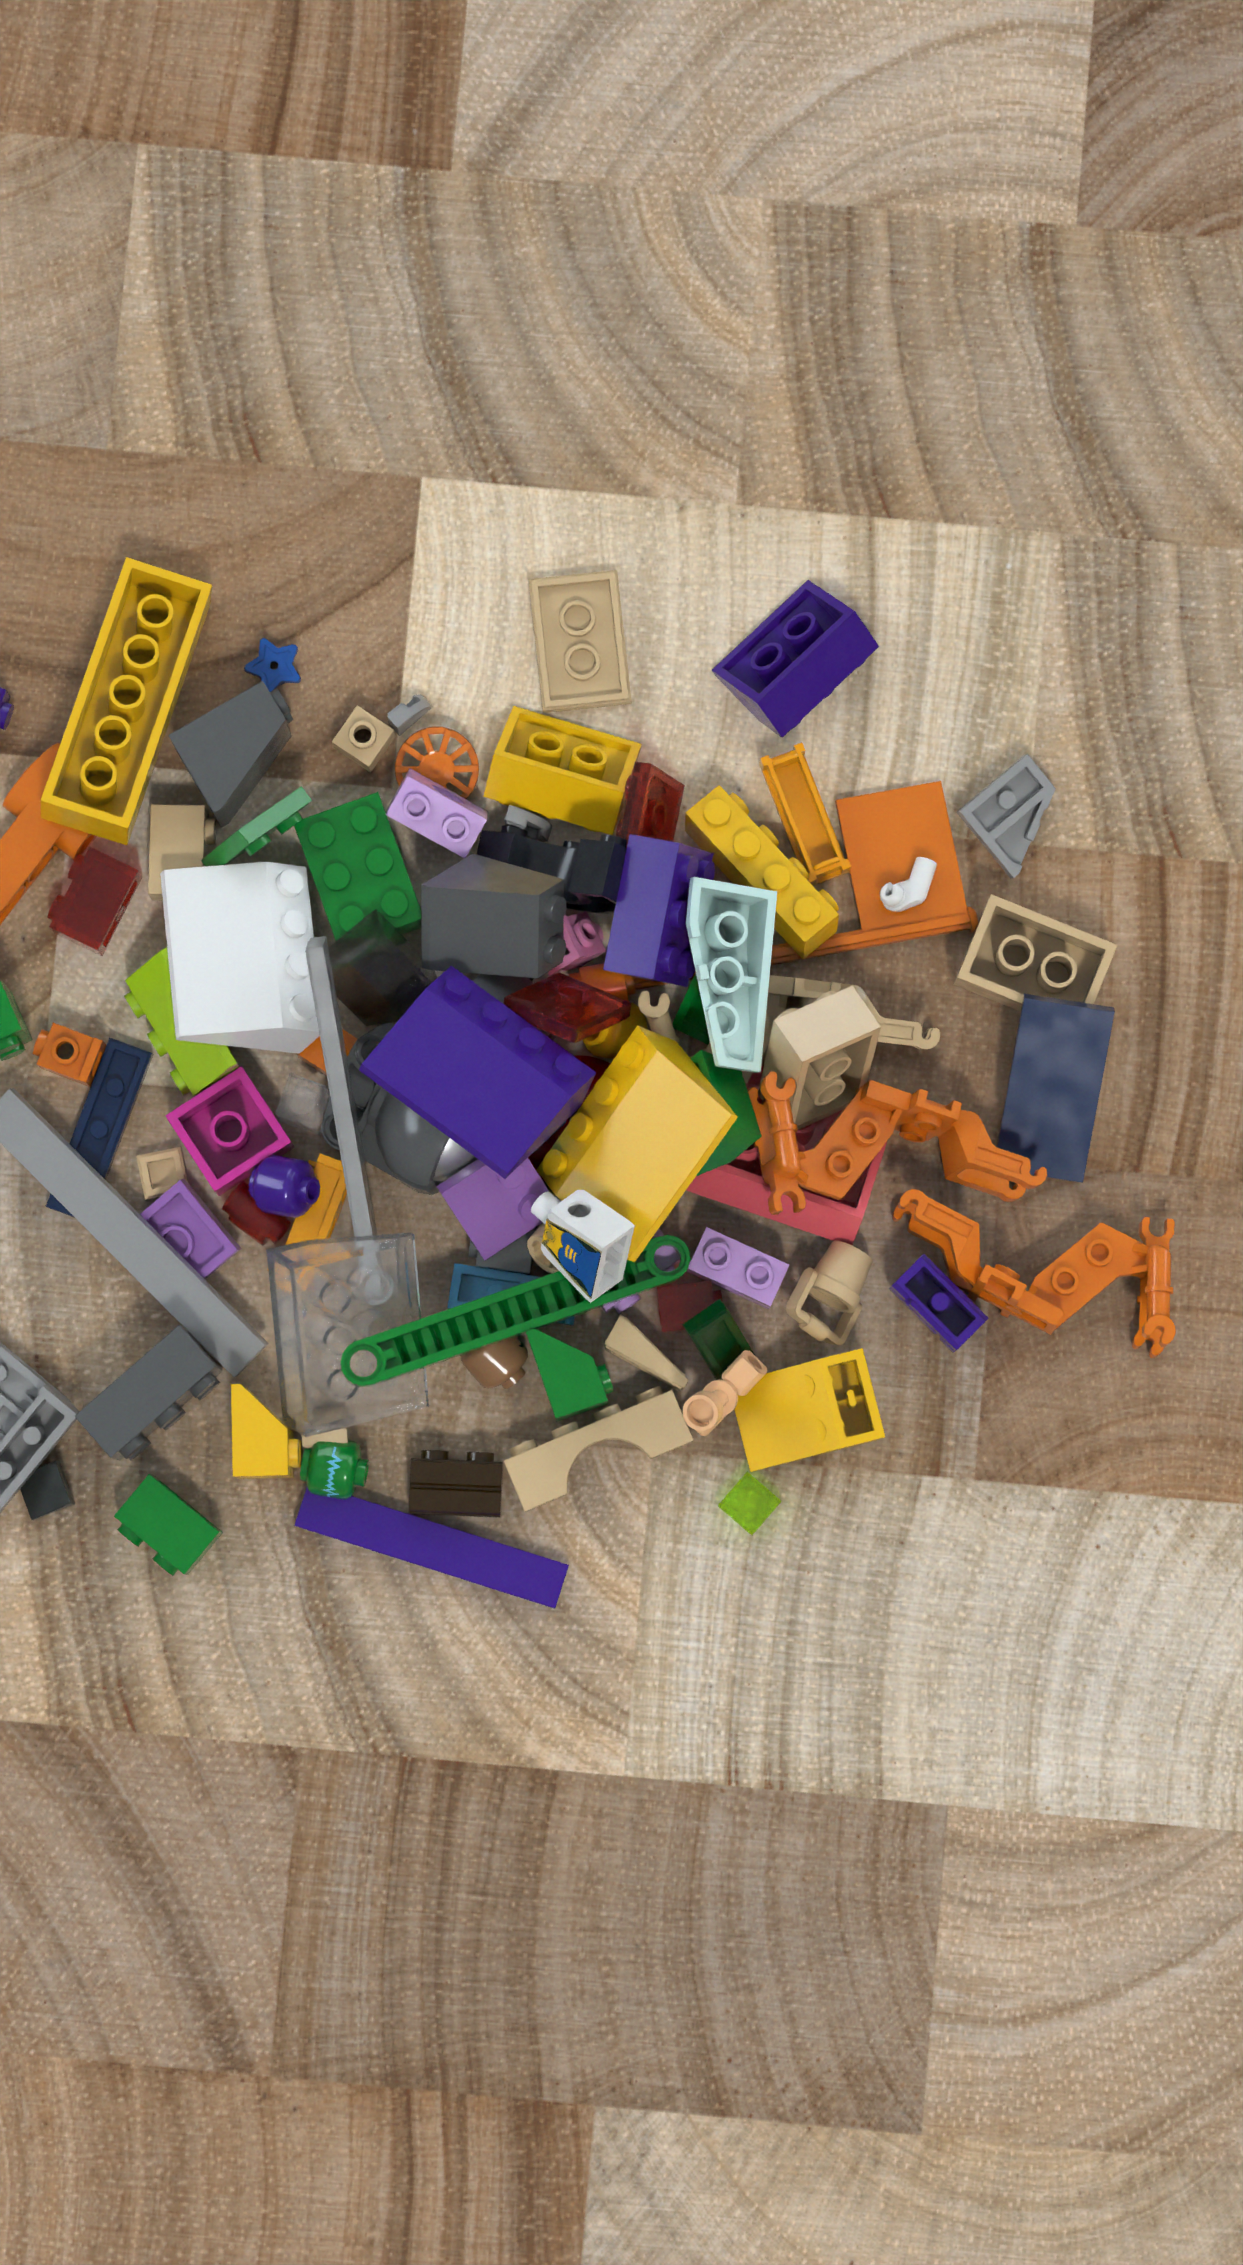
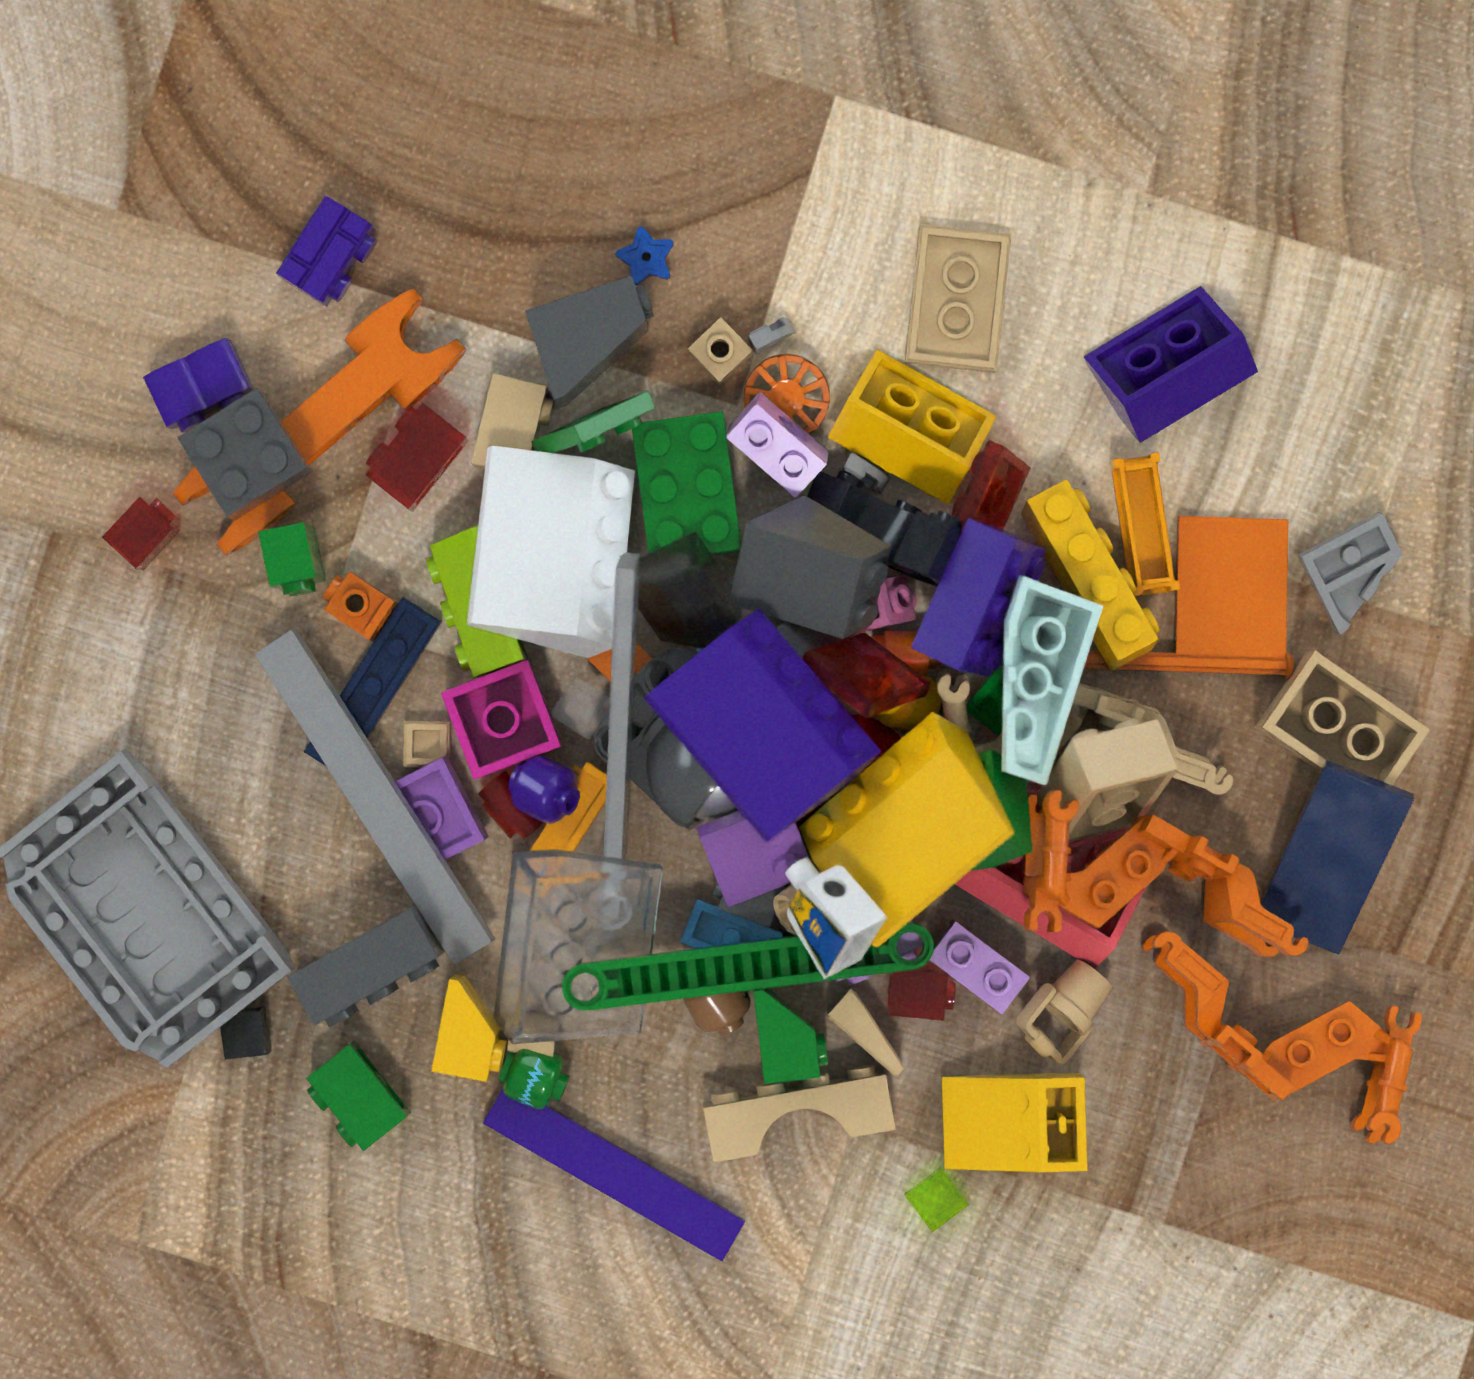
camera: 15 degrees right, 5 degrees up
(126, 701) = (490, 264): yellow brick -> none
(456, 1486) = (650, 1119): dark brown brick -> none
(716, 1337) = (944, 1038): dark green tile -> none
(720, 1397) = (917, 1103): light nougat bar -> none
(911, 891) = (1236, 626): white arm -> none
(938, 1303) = (1169, 1046): dark purple brick -> none

